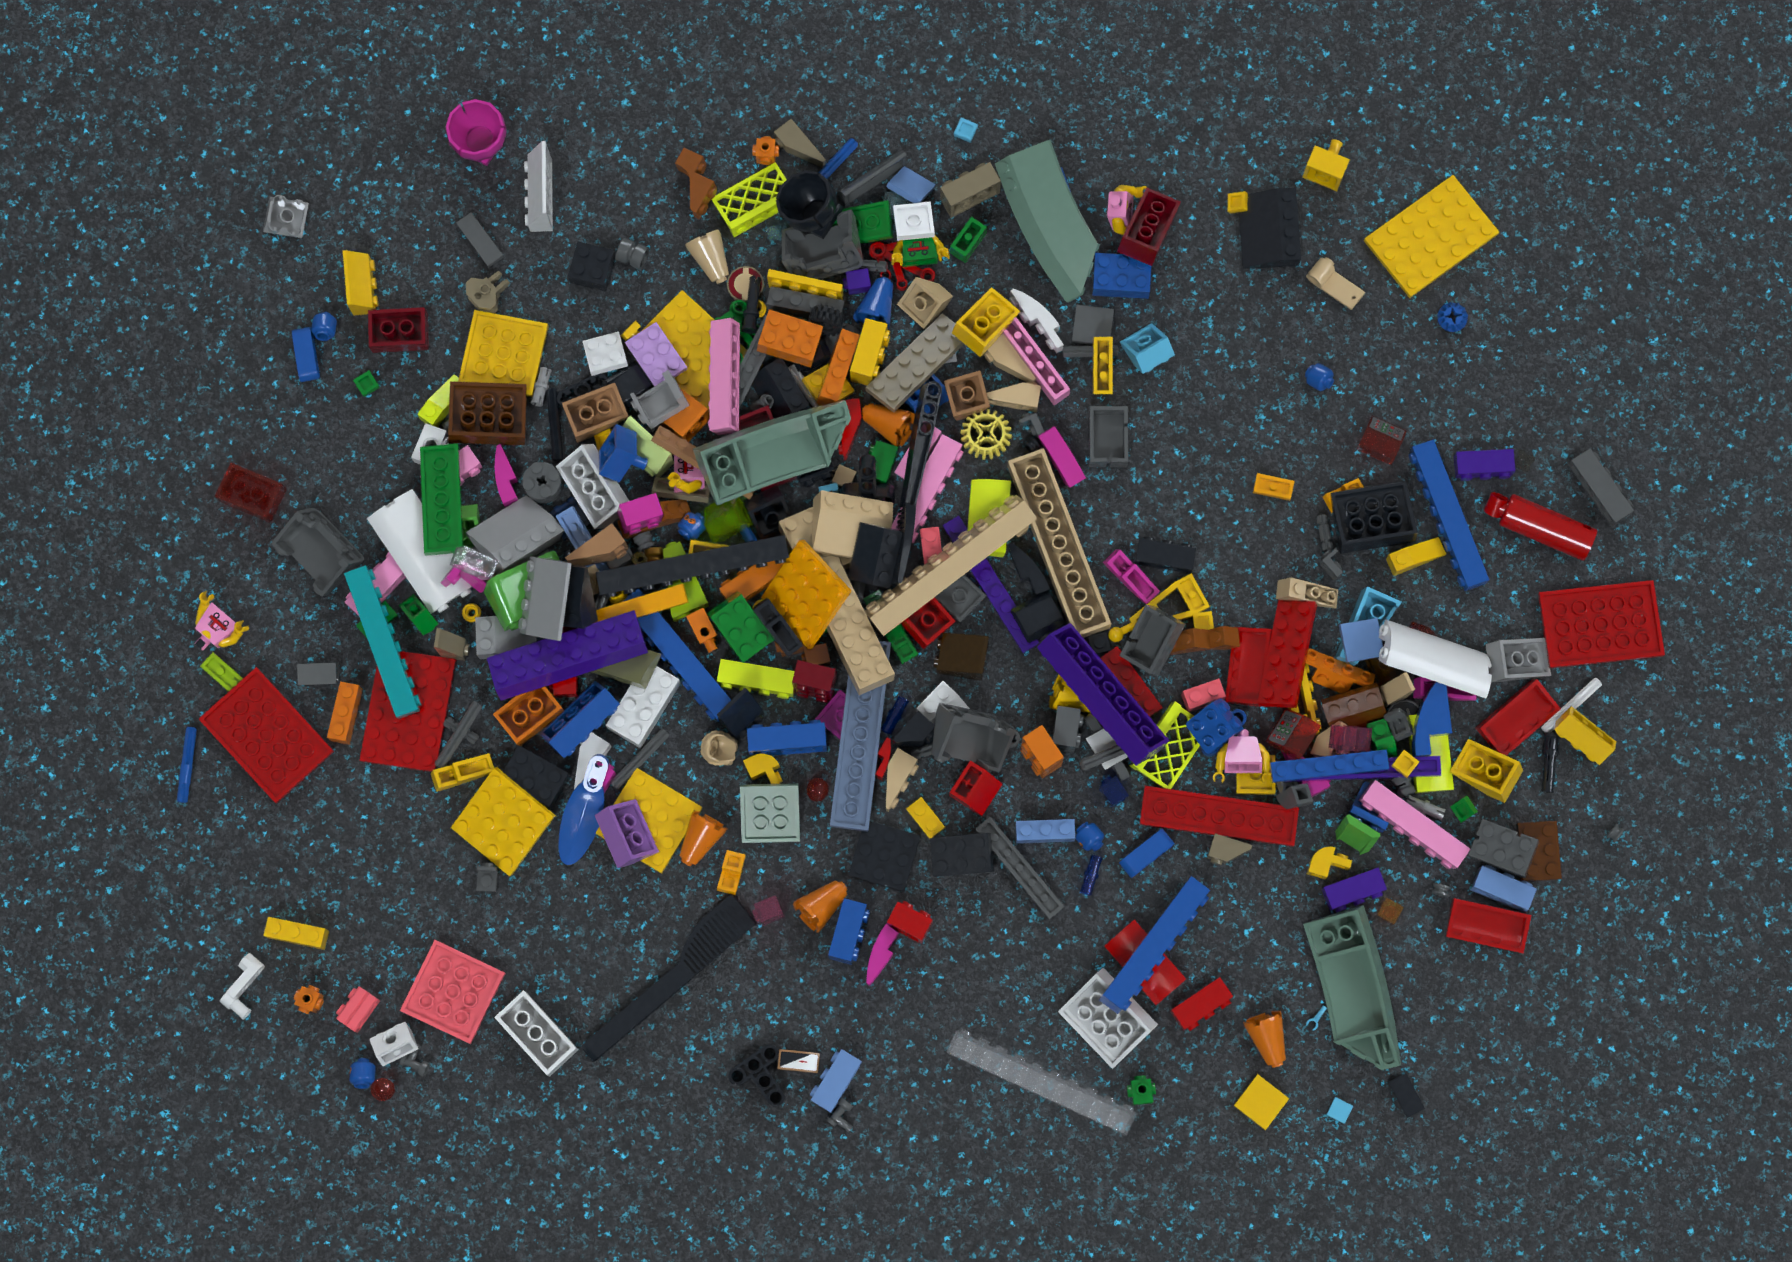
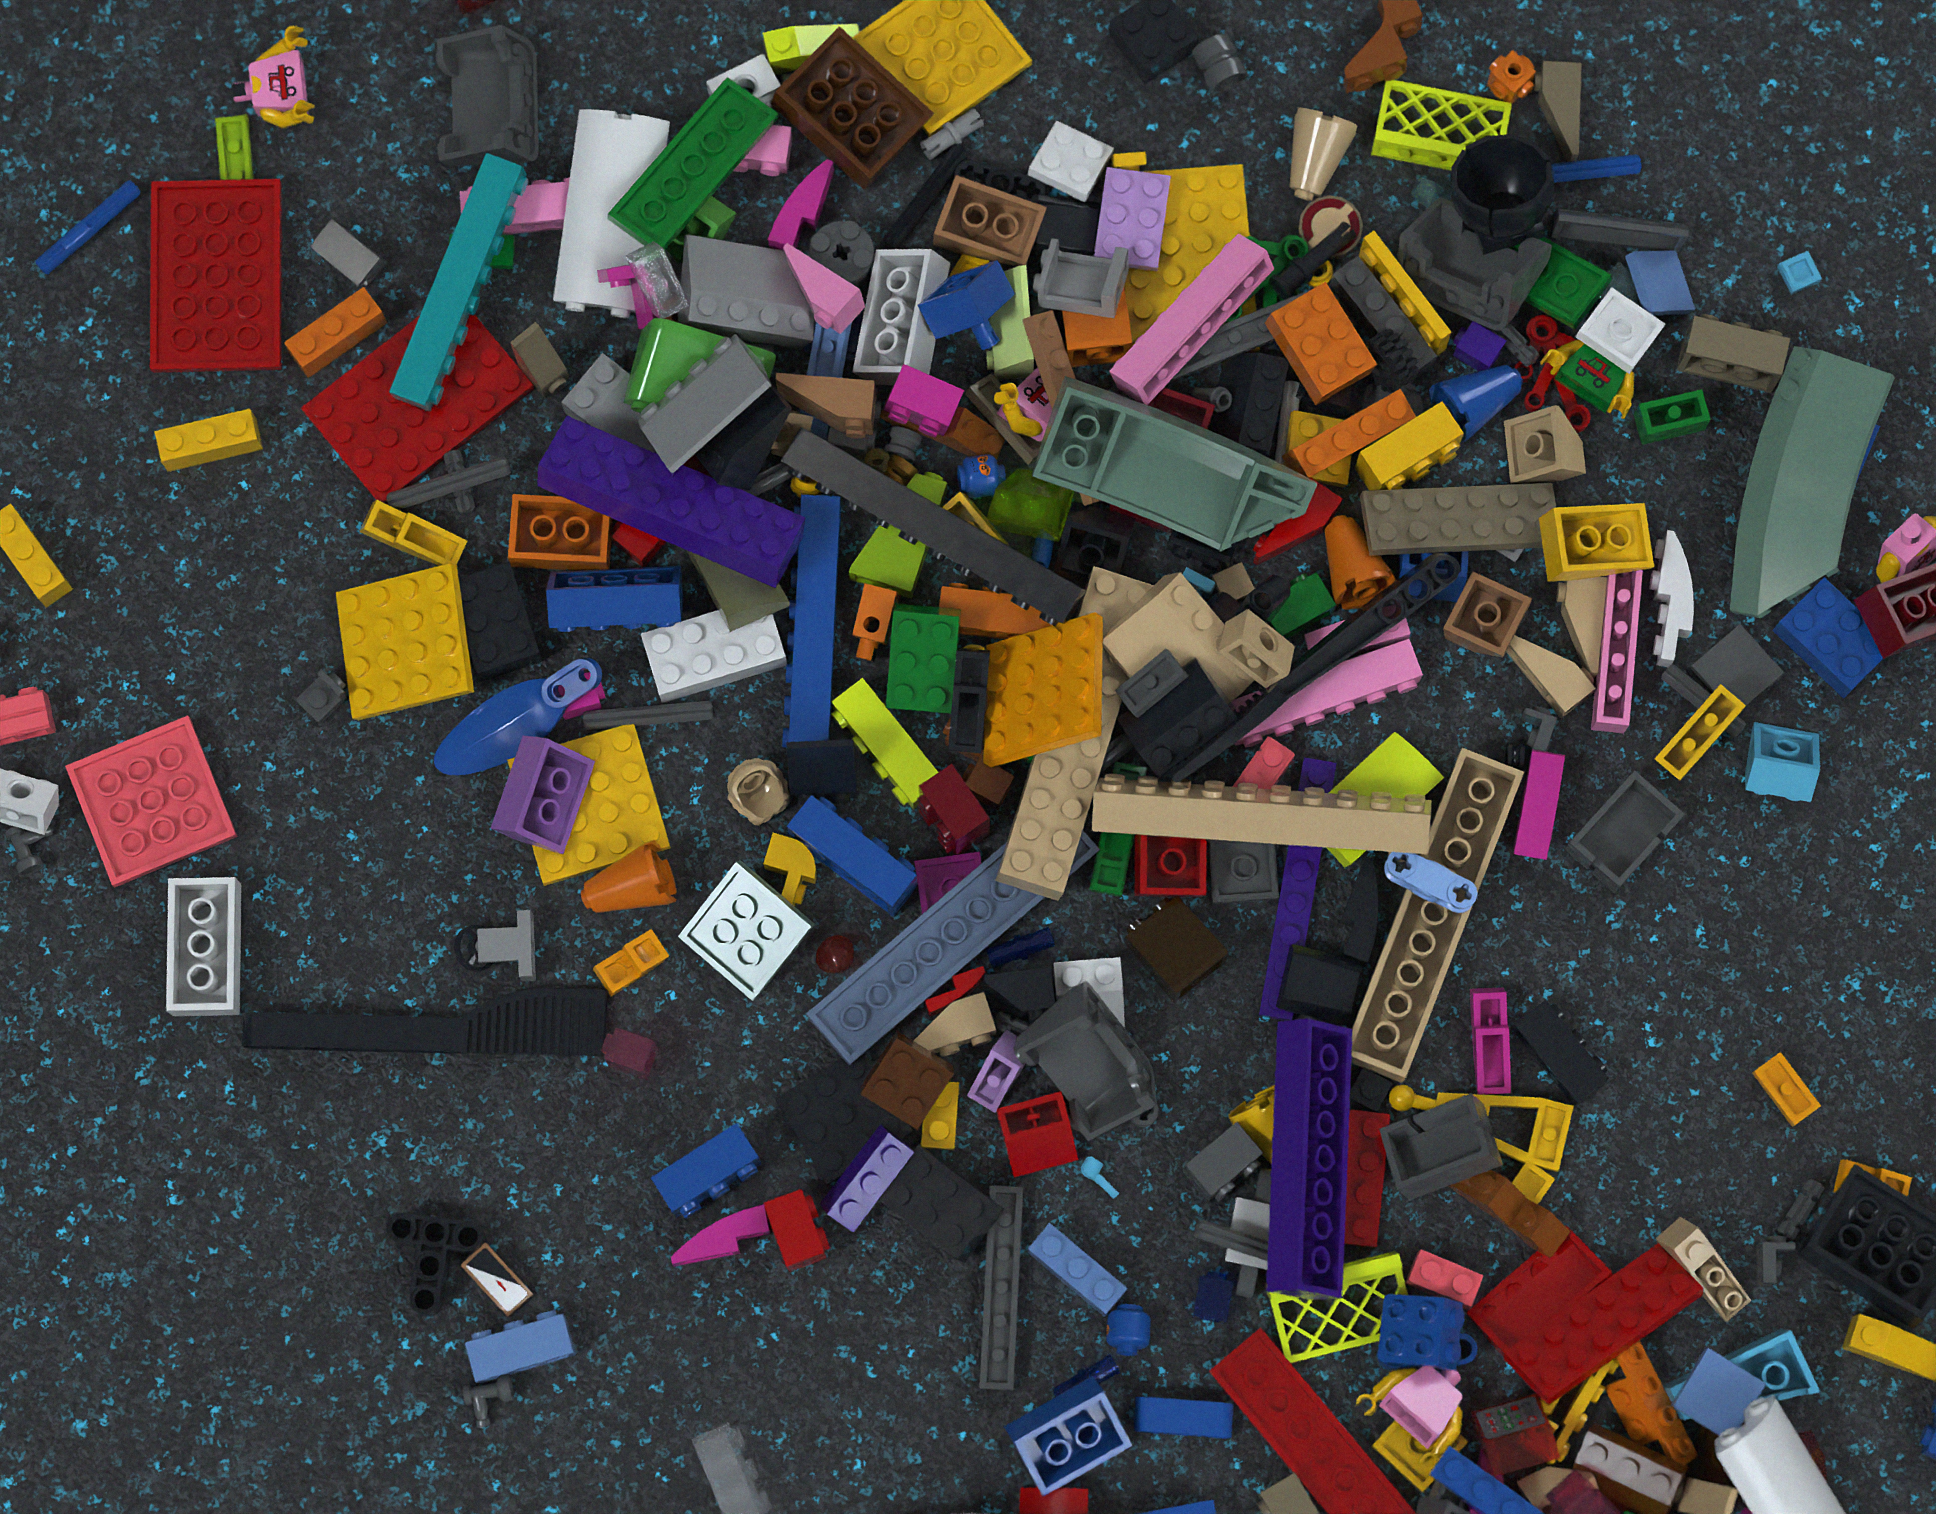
camera: 40 degrees right, 0 degrees up
(331, 810) = (208, 440): none -> yellow brick
(418, 615) = (537, 289): green slope -> none
(471, 606) = (606, 335): yellow plate -> none
(554, 504) = (828, 295): none -> bright pink slope
(589, 748) = (599, 645): white slope -> none
(647, 604) = (829, 524): light orange tile -> none
(667, 916) = (501, 946): none -> light grey piece
(821, 904) = (706, 1105): orange cone -> none
(851, 549) = (1151, 683): none -> dark grey plate
(882, 494) = (1256, 648): none -> tan brick
(899, 814) = (907, 1080): none -> reddish brown brick
(920, 872) = (866, 1178): none -> brick
(934, 777) = (997, 1073): none -> lavender slope
(995, 421) = (1453, 691): light yellow gear -> none
(1011, 783) = (1091, 1169): none -> medium azure hand
(1041, 751) = (1164, 1163): orange brick -> none
(1047, 529) = (1431, 881): none -> light blue piece
(1106, 904) = (1068, 1436): none -> blue brick

